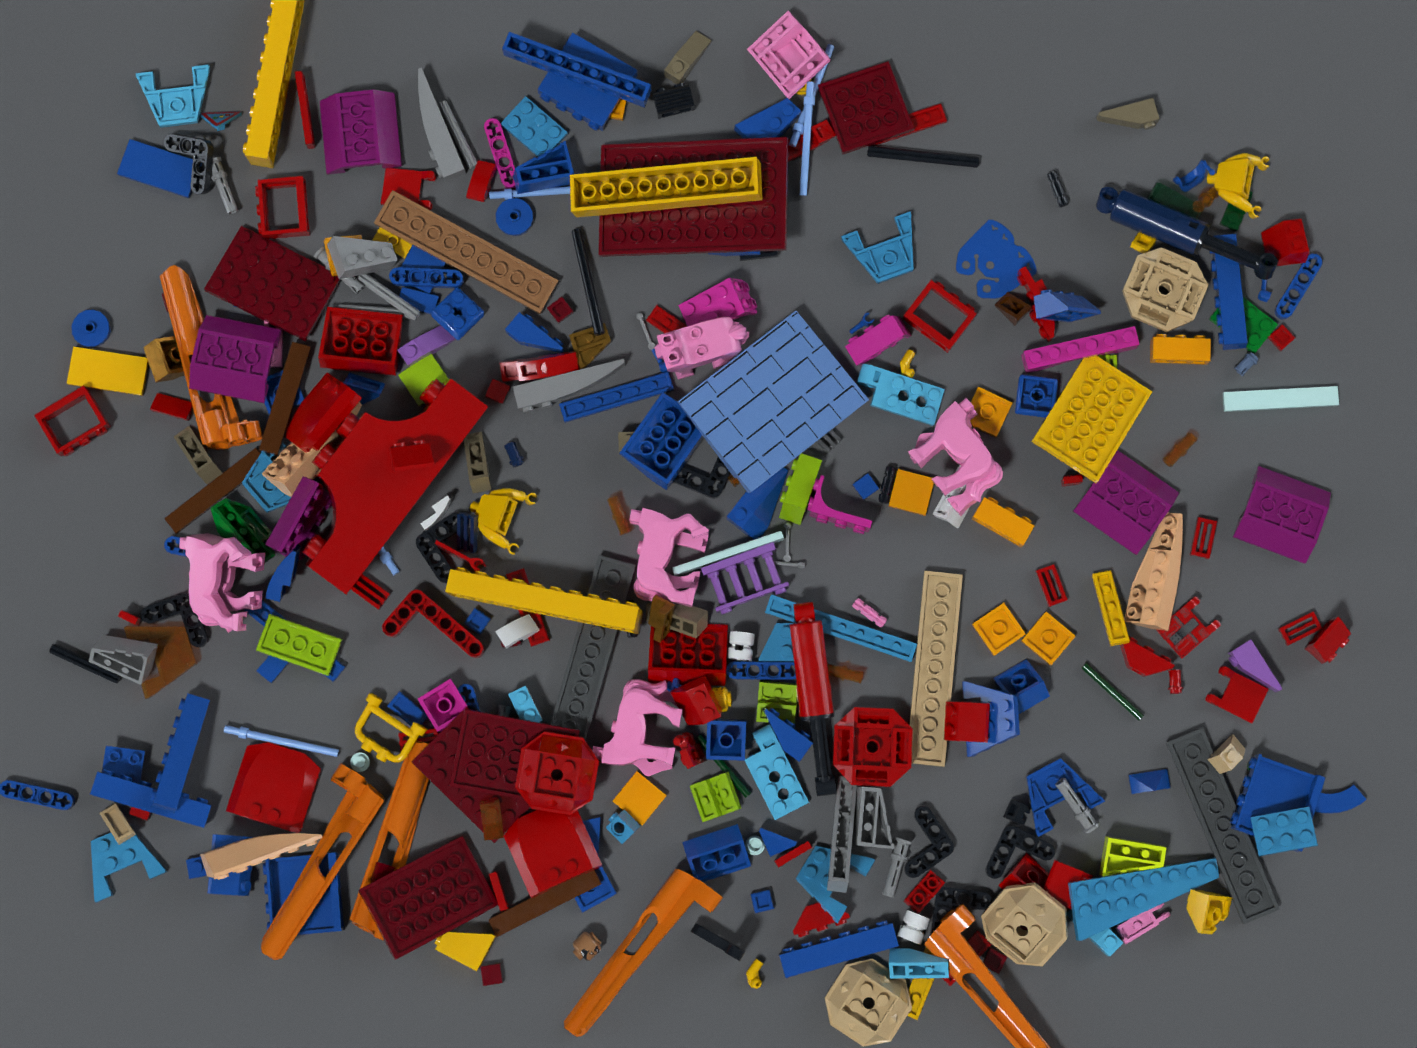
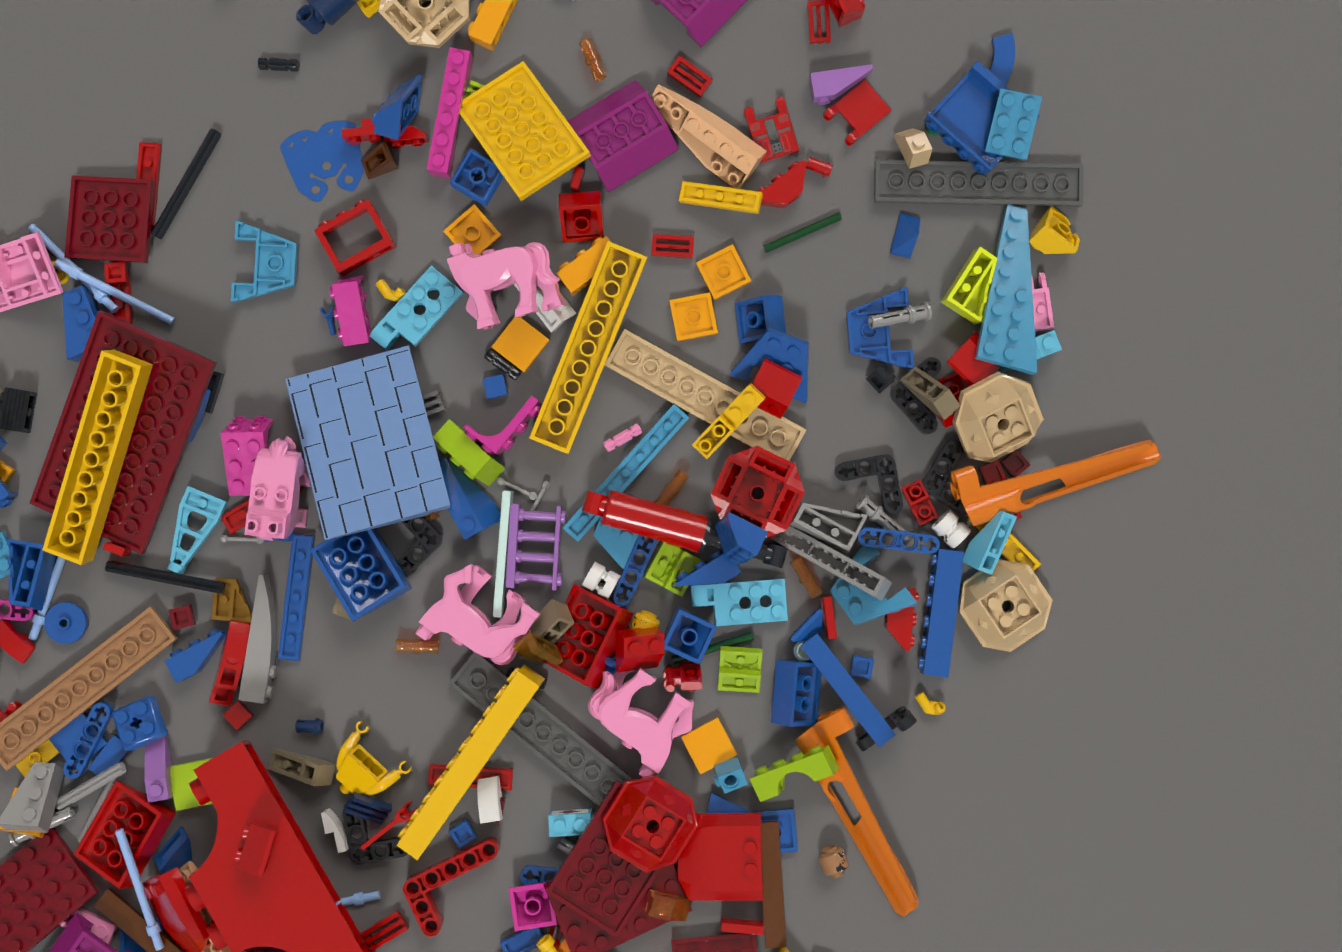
camera: 65 degrees left, 5 degrees up
(297, 397) = (152, 926): none -> light blue bar
(594, 232) = (117, 549): none -> red tile
(661, 287) = (201, 503): none -> medium azure plate
(664, 893) = (817, 764): none -> lime arch
(738, 895) = (848, 690): none -> blue tile
(818, 820) = (806, 577): none -> clear orange pin
(828, 744) = (739, 538): none -> blue slope
(881, 885) = (898, 537): none -> blue beam
(922, 696) = (728, 421): none -> yellow slope
(933, 551) = (588, 347): none -> yellow brick
(1022, 857) = (931, 392): none -> dark tan slope
(1042, 497) = (581, 216): none -> red slope

